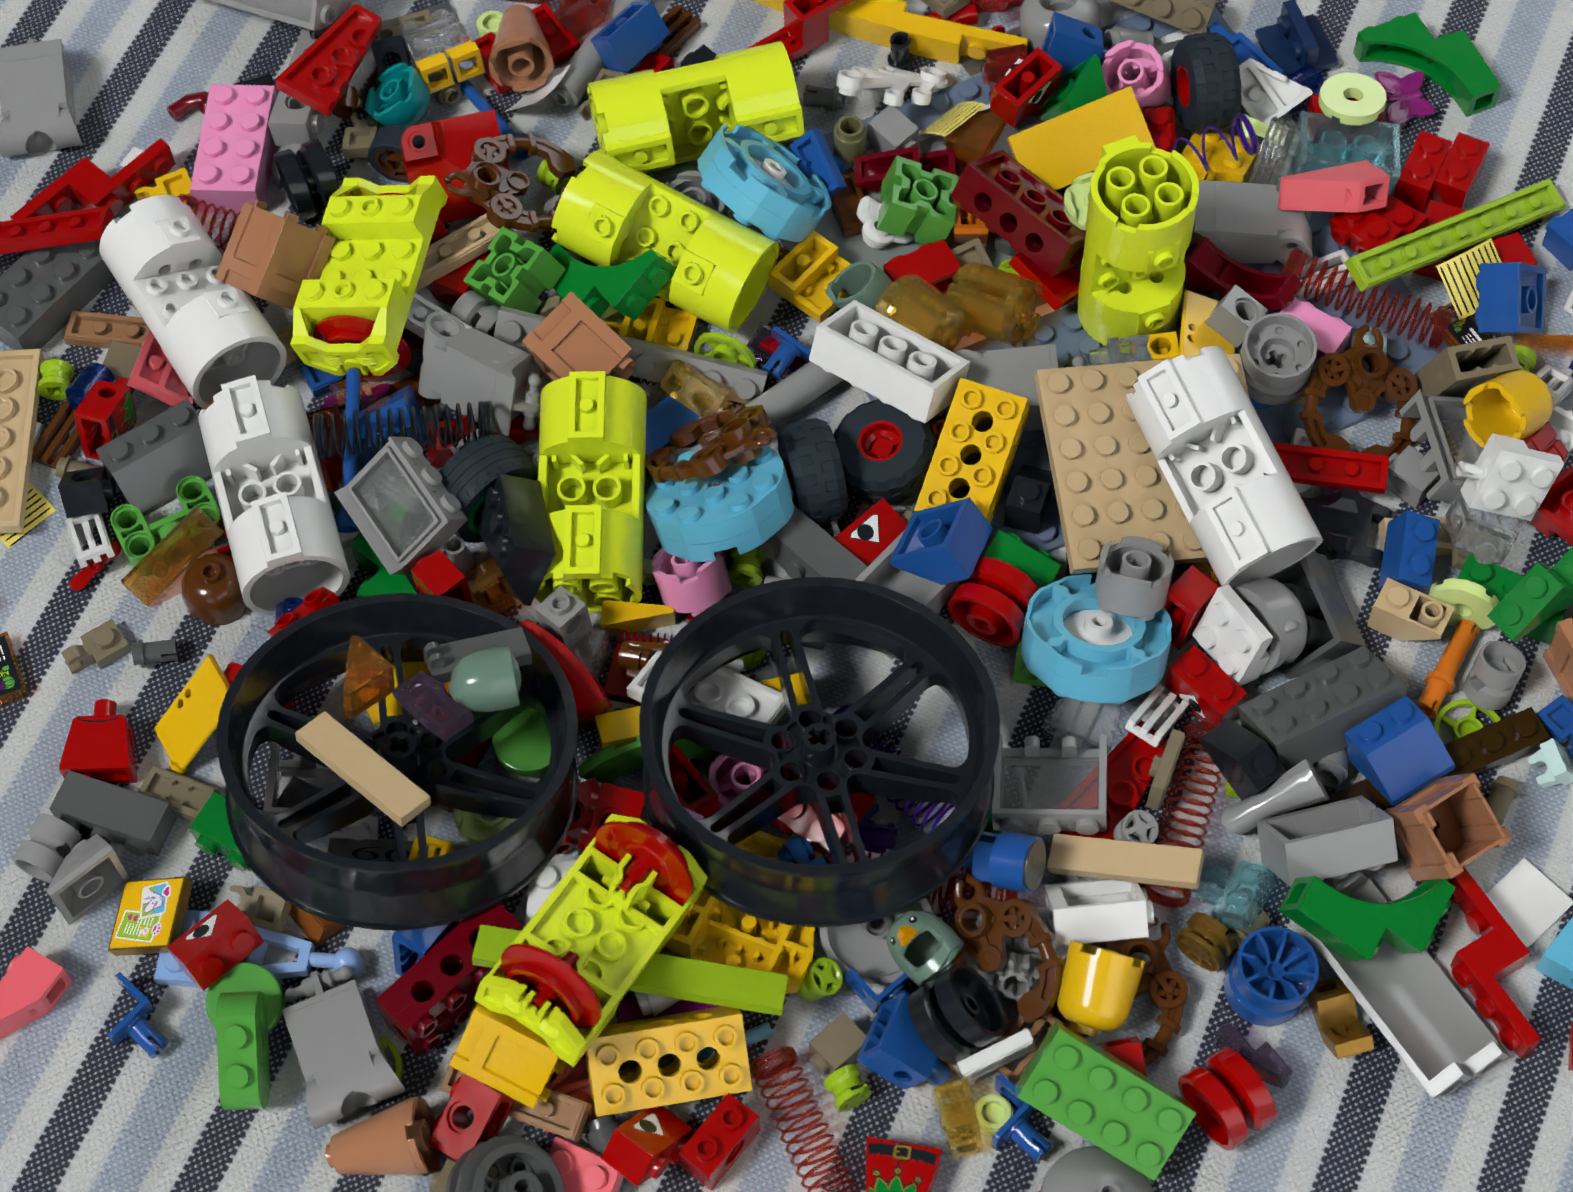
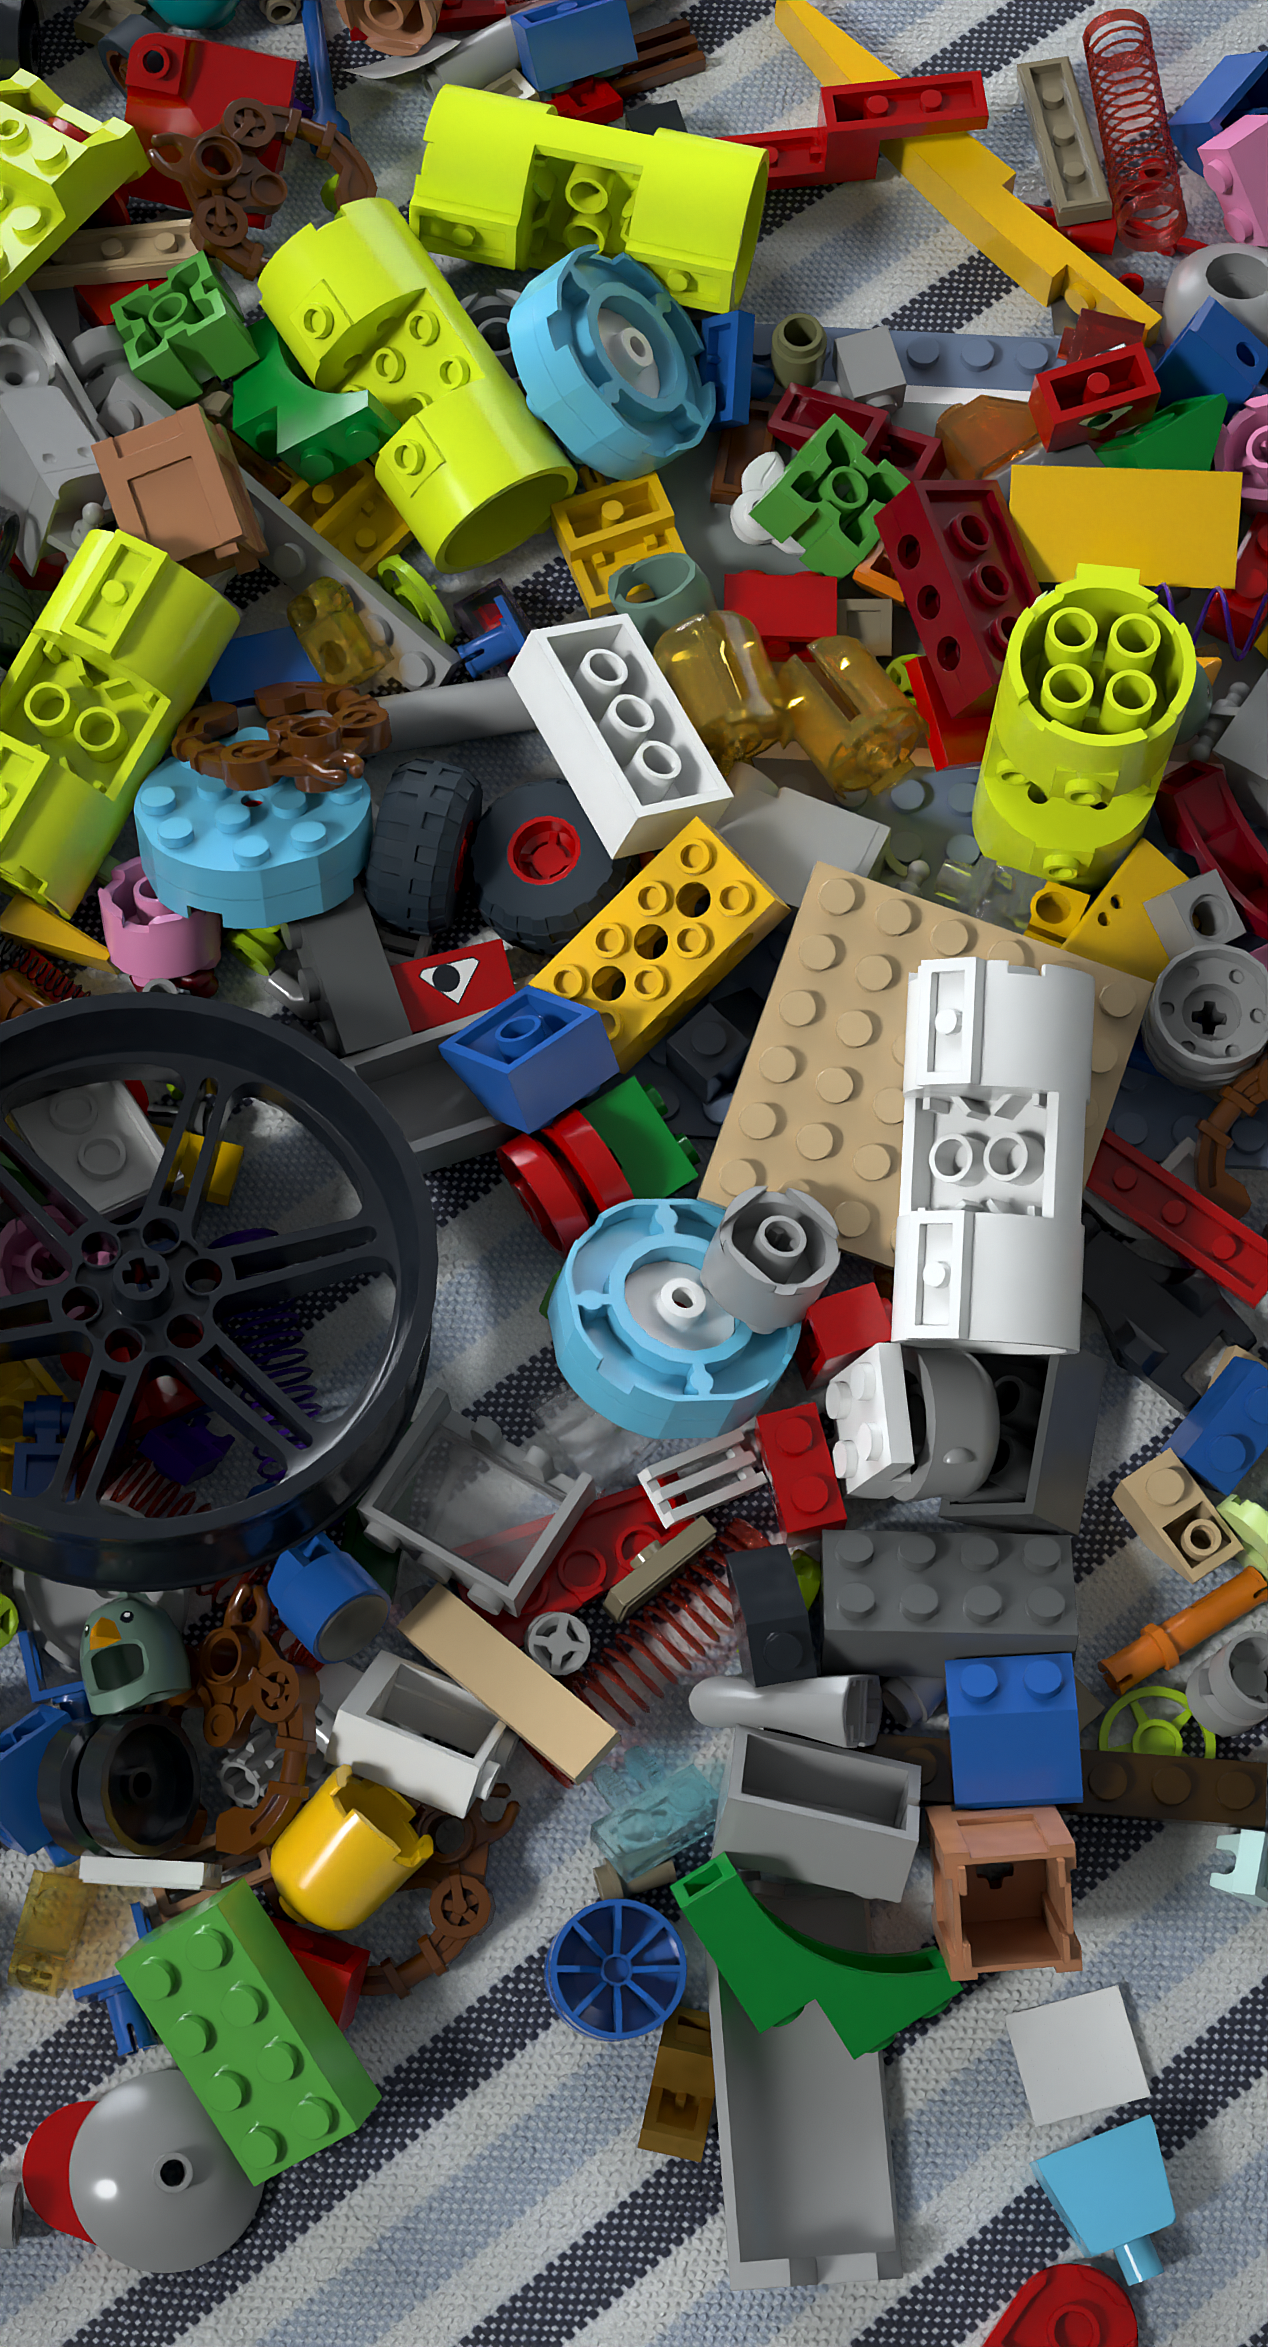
camera: 25 degrees right, 10 degrees up
(824, 97) = (821, 272): dark grey pin -> none
(900, 51) = (962, 254): black pin -> none
(930, 81) = (979, 313): white plant -> none
(953, 118) = (968, 393): light yellow sticker -> none
(992, 1113) = (103, 1945): yellowish green tile -> none
(1205, 941) = (565, 1858): pearl gold wheel -> none
(1227, 1098) = (432, 2122): red wheel -> none
(1263, 1060) = (529, 2086): clear purple slope -> none
(1488, 961) = (956, 2120): red bracket -> none
(1503, 792) = (1134, 1878): dark tan pin -> none

